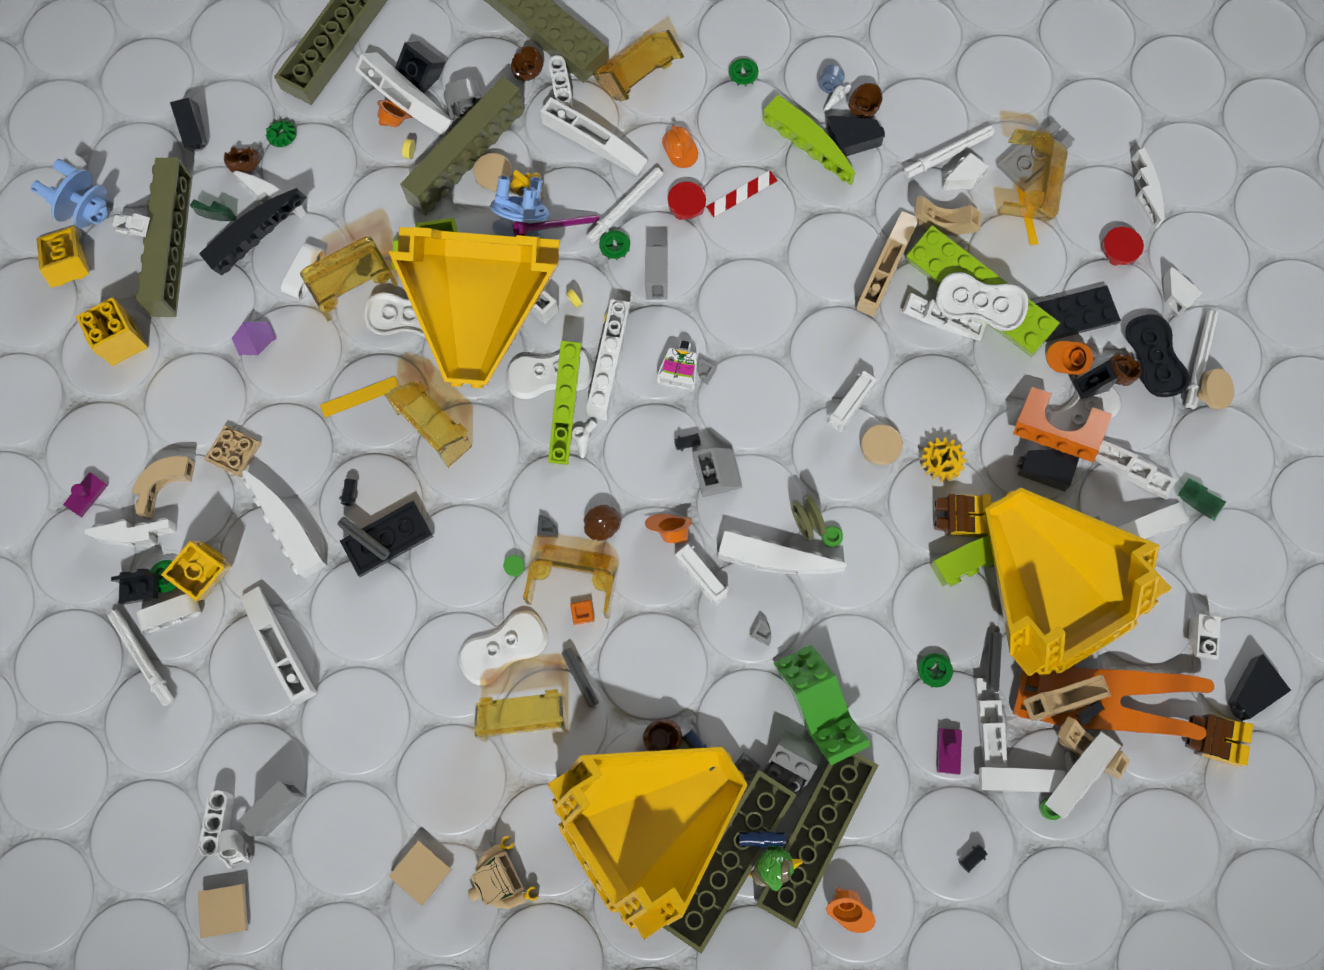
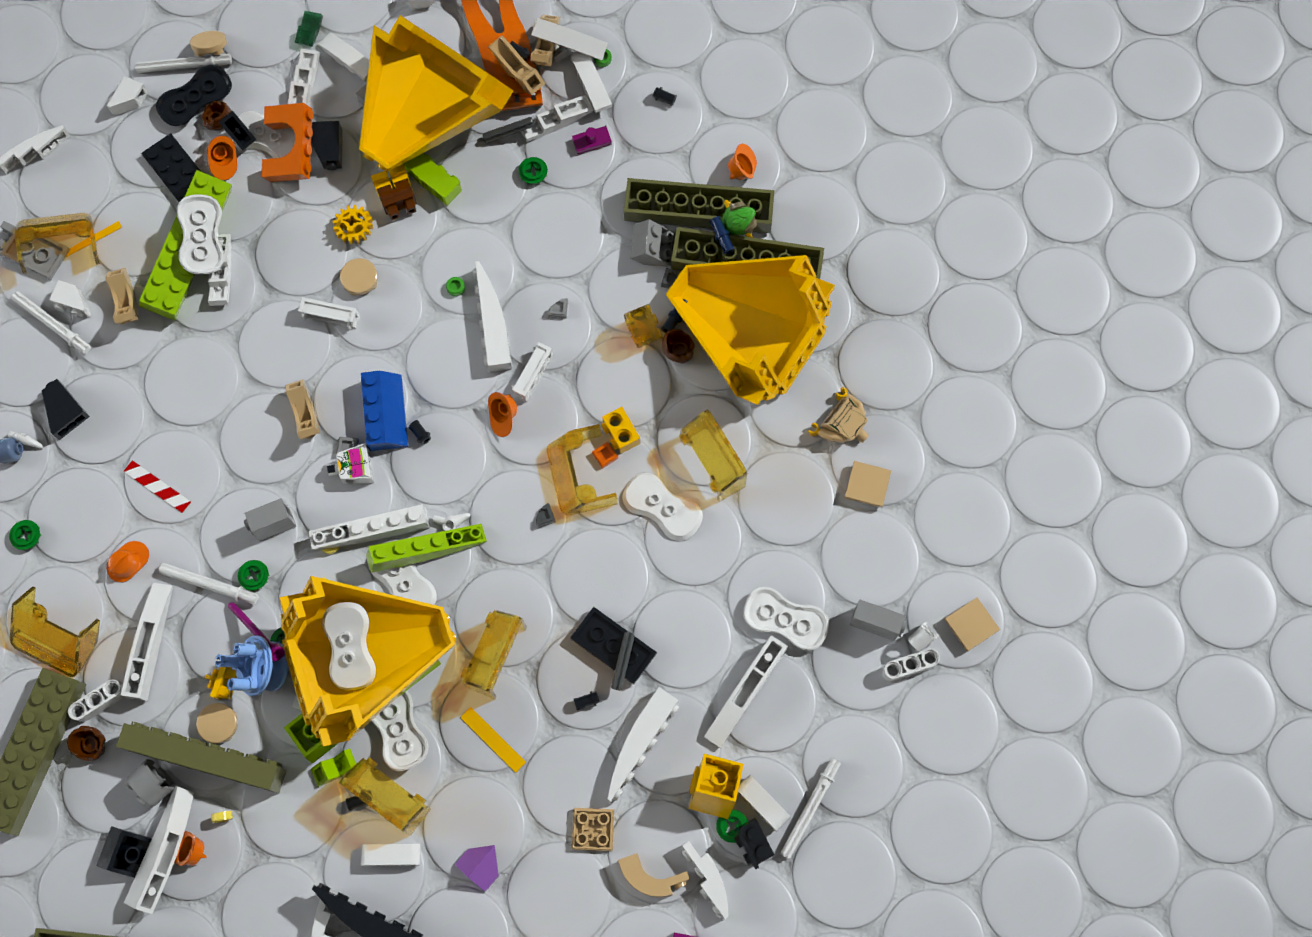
camera: 115 degrees left, 0 degrees up
(312, 730) = (771, 612): none -> white plate
(499, 290) = (347, 630): none -> white plate
(514, 565) = (590, 527): bright green tile -> none
(580, 677) = (659, 432): dark grey axle -> none
(598, 643) = (625, 428): none -> yellow brick
(601, 522) = (522, 470): reddish brown hair -> none
(686, 200) = (183, 529): red tile -> none
(699, 707) = (642, 325): none -> clear yellow brick
(716, 471) = (438, 396): light grey slope -> none
(724, 415) = (384, 410): none -> blue slope
(754, 342) = (303, 409): none -> tan arch
(808, 136) = (78, 448): lime slope -> none
(808, 517) = (449, 305): olive wheel -> none
(821, 704) = (598, 236): bright green bracket -> none
(865, 100) = (21, 410): reddish brown hair -> none
(887, 264) = (186, 330): tan slope -> none
(1122, 246) = (97, 152): red tile -> none

